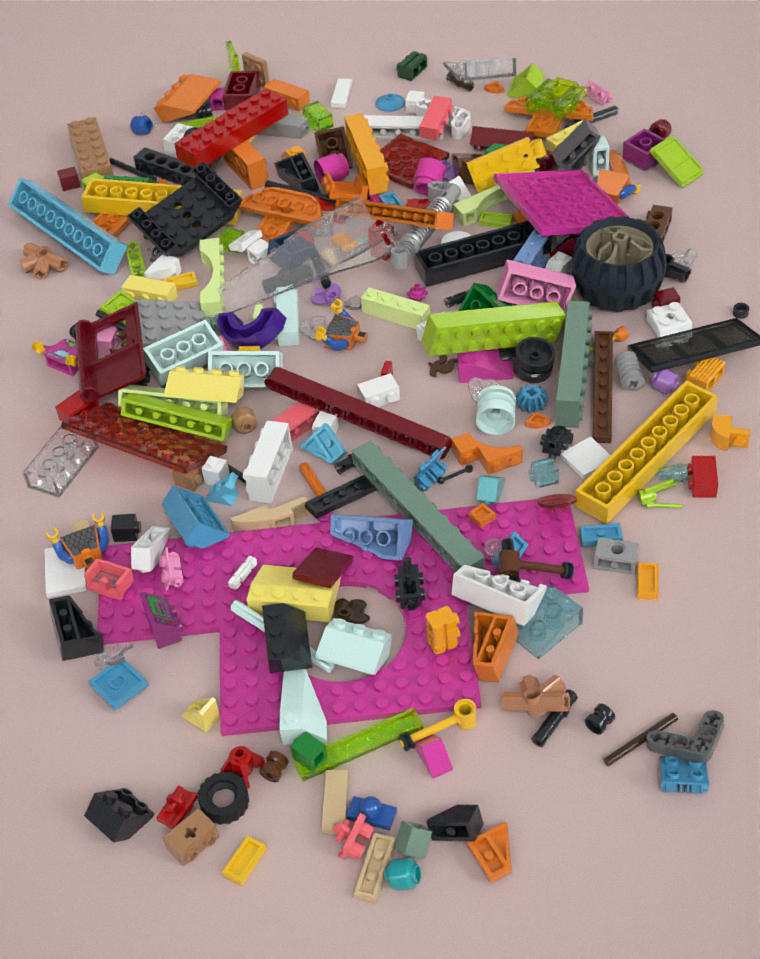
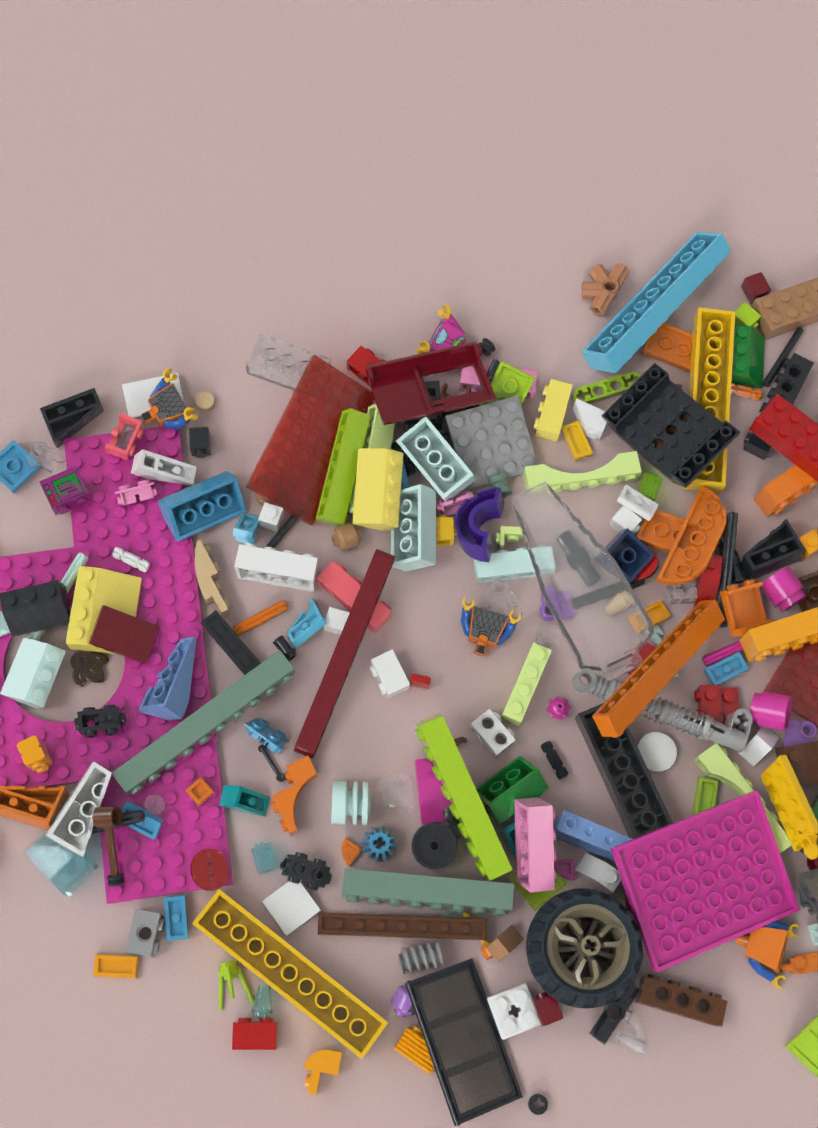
camera: 75 degrees right, 25 degrees up
(615, 319) = (504, 943): none -> medium nougat piece

